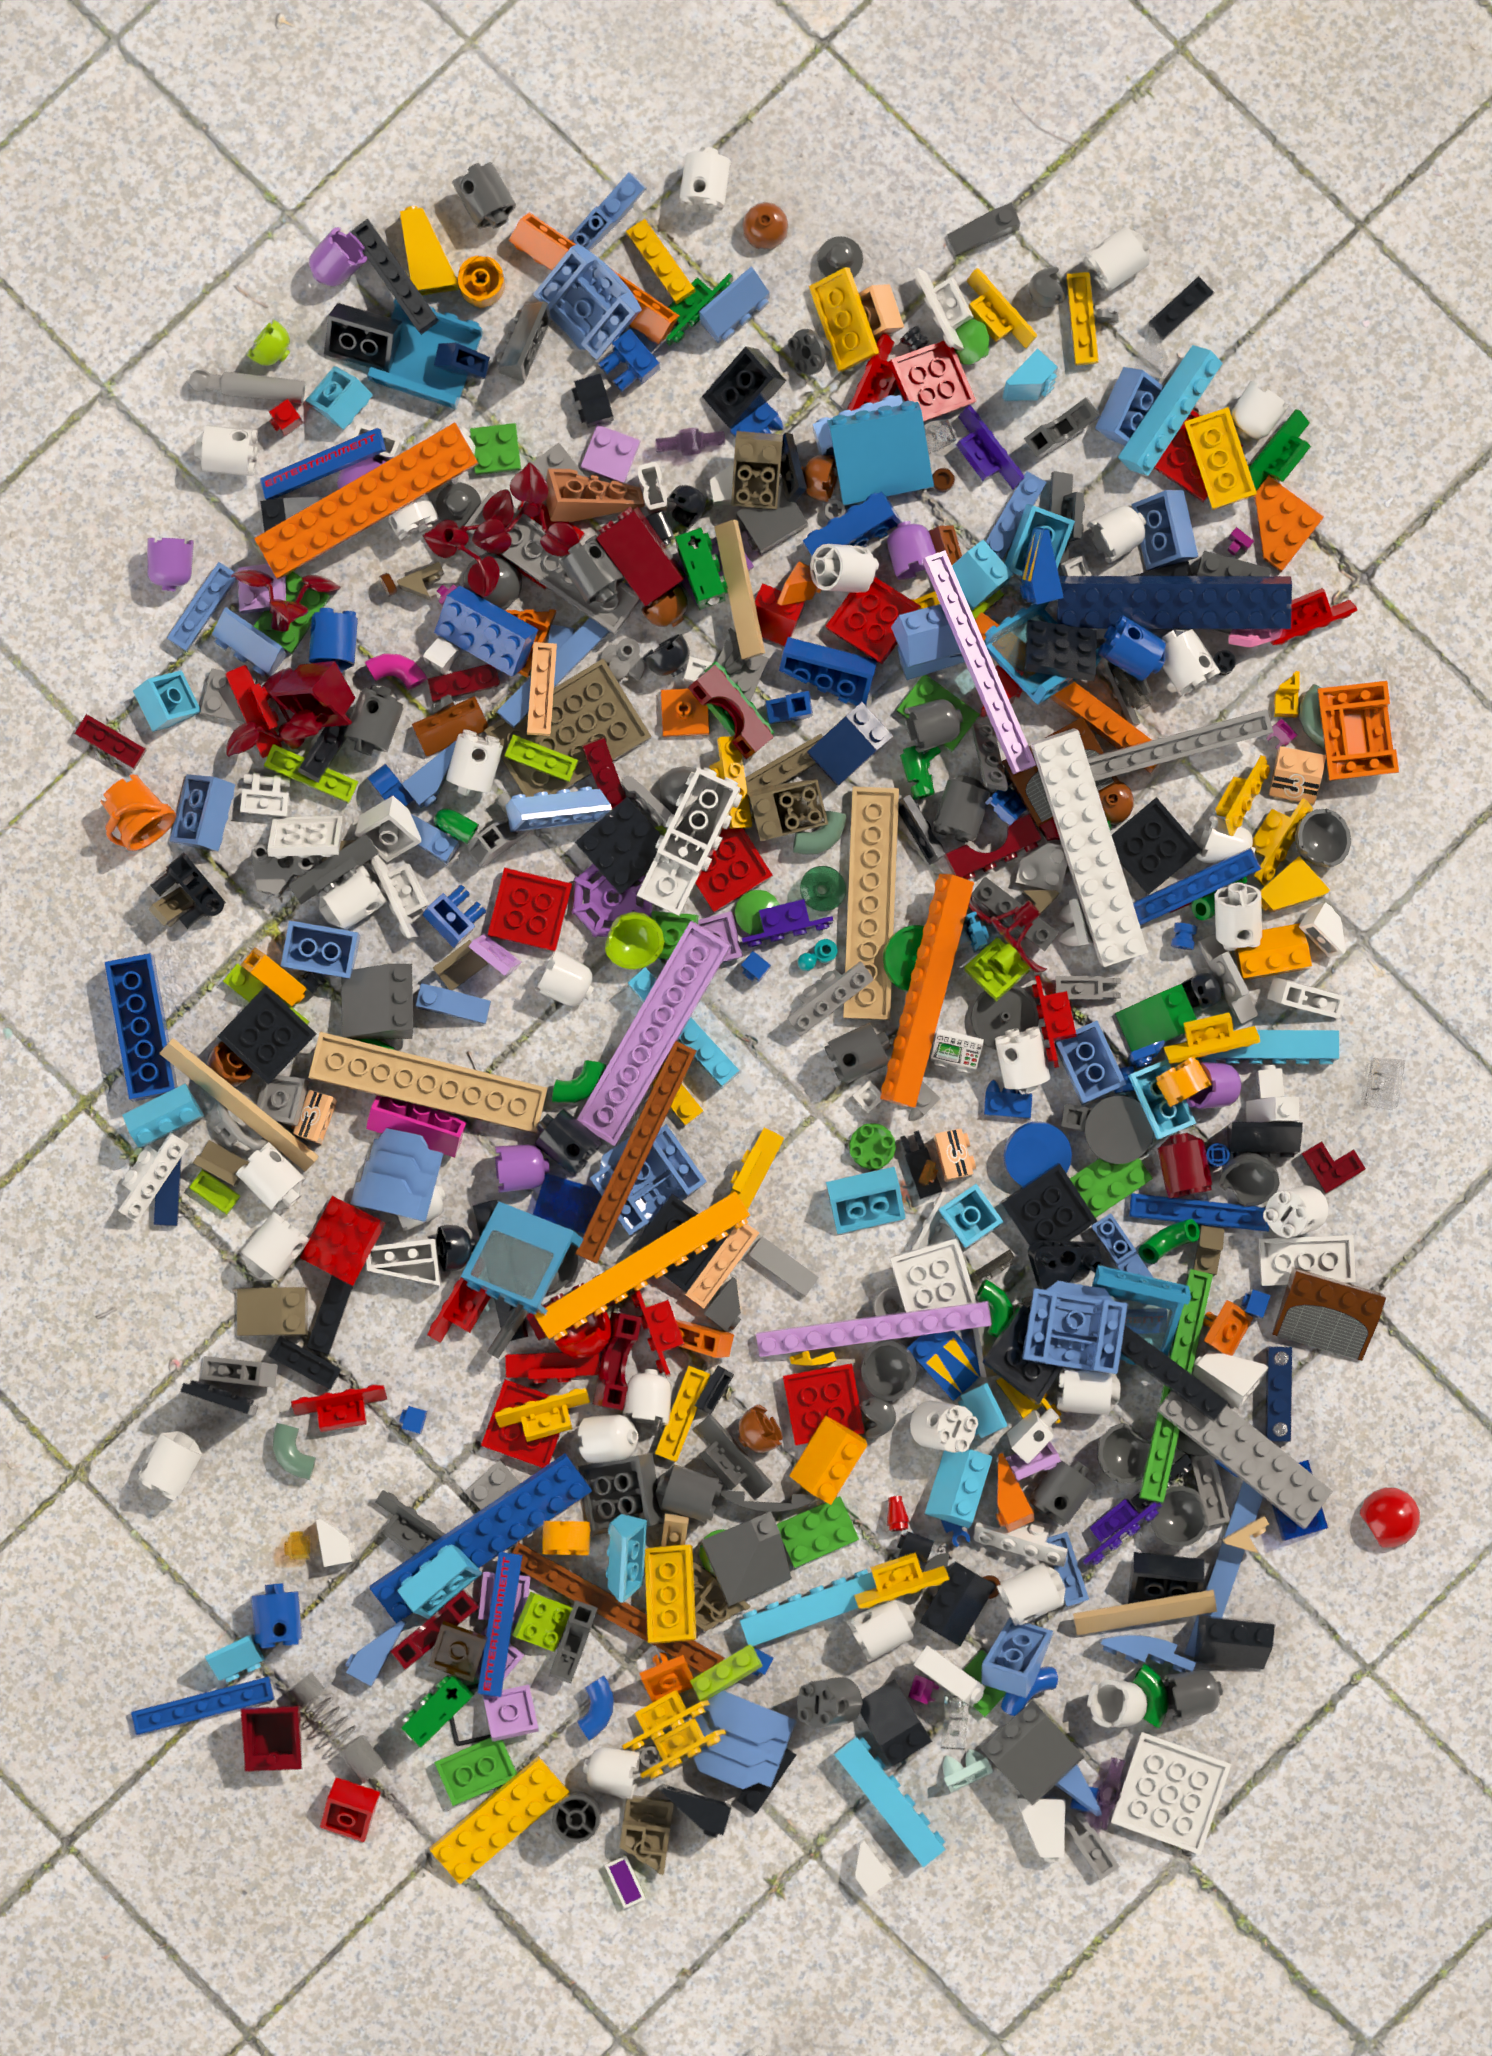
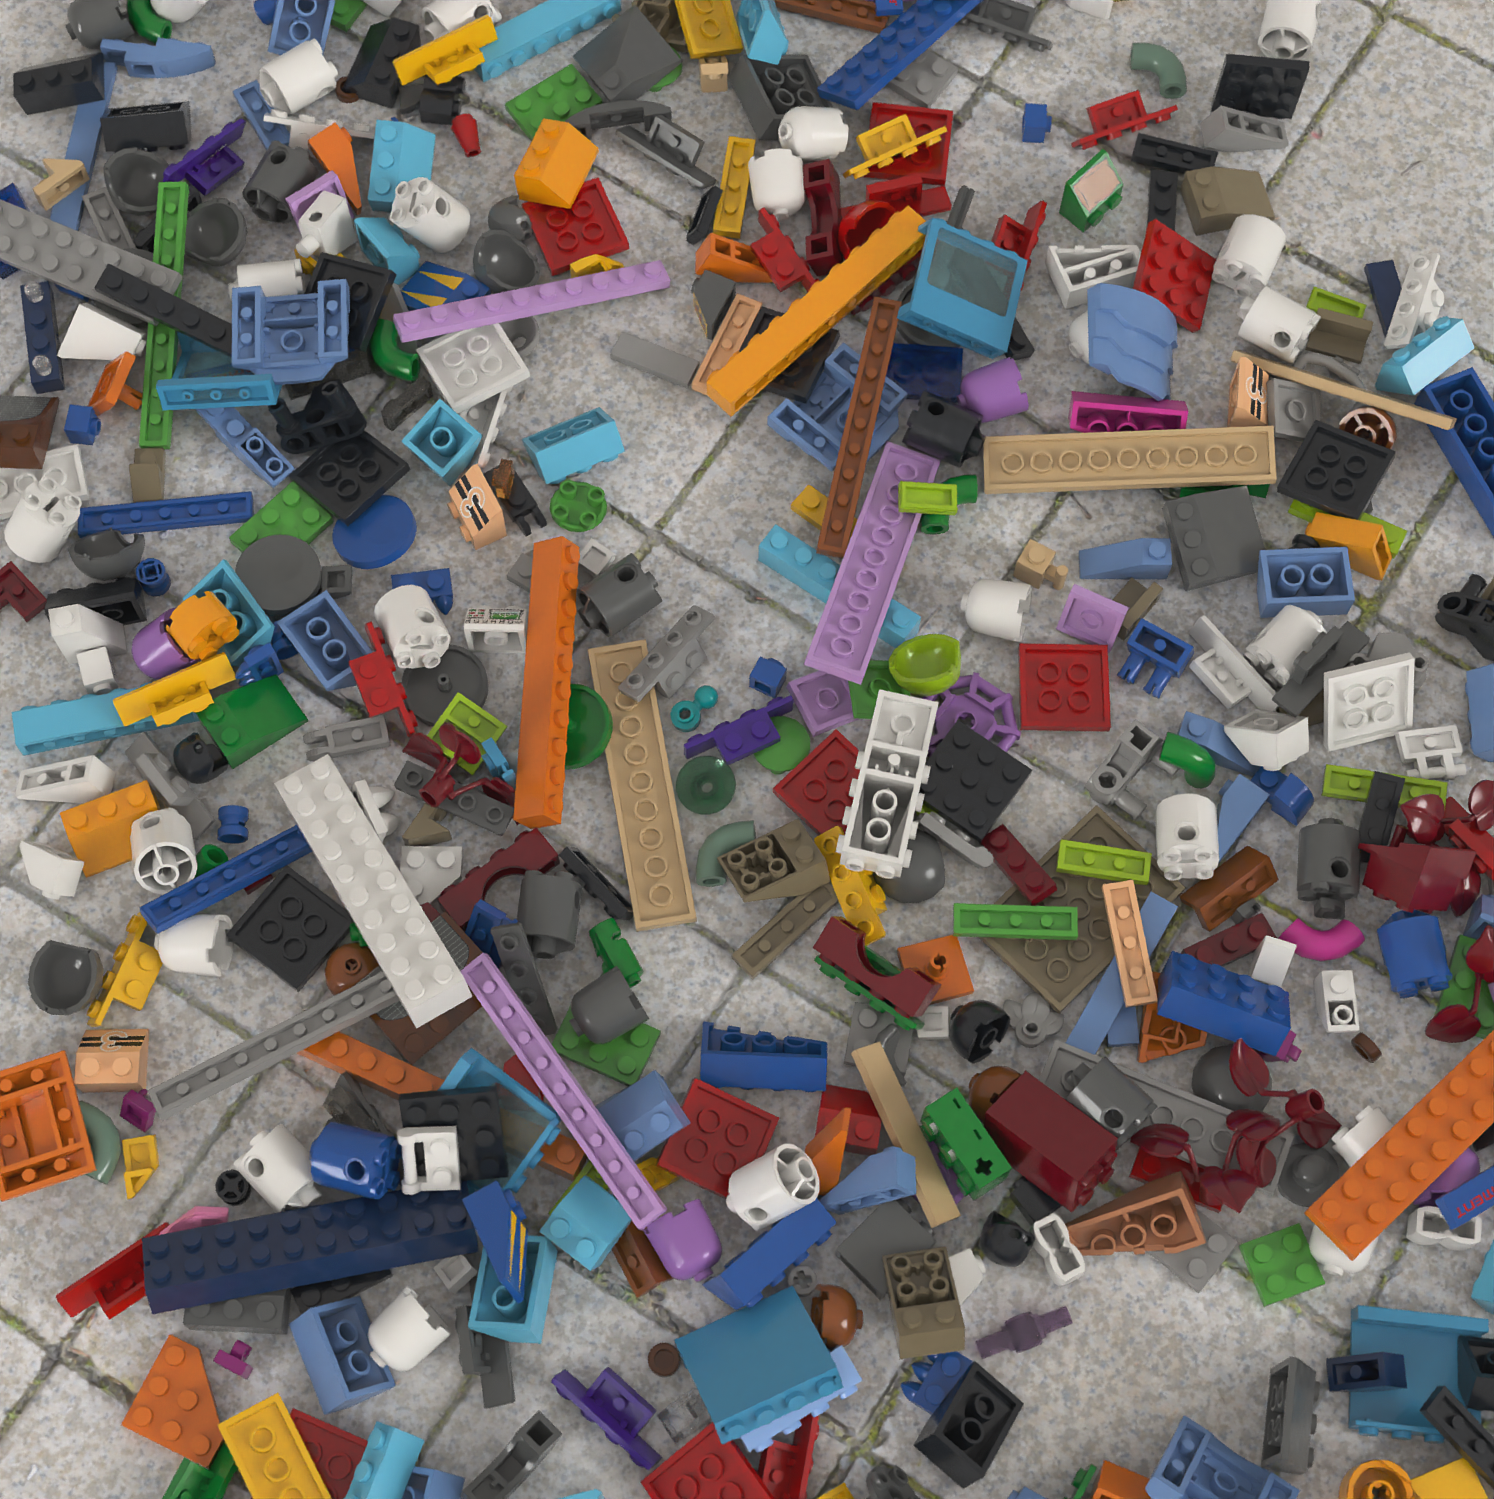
camera: 165 degrees right, 15 degrees down
(386, 1335) = (1091, 192): none -> slope
(400, 618) = (1336, 1001): none -> white slope
(415, 582) = (1329, 1056): dark tan slope -> none
(454, 1247) = (1042, 297): black cylinder -> none
(523, 1012) = (1037, 564): none -> tan brick
(556, 809) = (1066, 799): light blue slope -> none
(566, 1538) = (832, 35): light orange brick -> none
(593, 401) = (1170, 1359): black brick -> none
(597, 1080) = (927, 498): none -> lime tile
(610, 454) = (1126, 1292): lavender plate -> none
(619, 728) = (1015, 921): none -> bright green plate
(635, 355) = (1129, 1435): blue brick -> none
(688, 1493) = (706, 101): dark grey cylinder -> none
(756, 1166) = (713, 453): yellow bracket -> none
(758, 1431) = (641, 182): dark orange cylinder -> none
(765, 558) = (875, 1181): none -> medium blue slope
(789, 708) = (801, 999): blue brick -> none
(791, 469) = (876, 1317): black plate -> none
(850, 744) = (712, 966): dark blue slope -> none
(1006, 526) = (559, 1325): medium blue plate -> none
(1073, 633) = (440, 1159): none -> white plate
(1145, 1612) = (165, 89): tan tile -> none
(1168, 1239) = (200, 473): green cylinder -> none
(1184, 1165) = (187, 546): dark red cylinder -> none
(1240, 795) = (185, 1009): yellow bracket -> none
(1292, 887) = (101, 912): yellow slope -> none

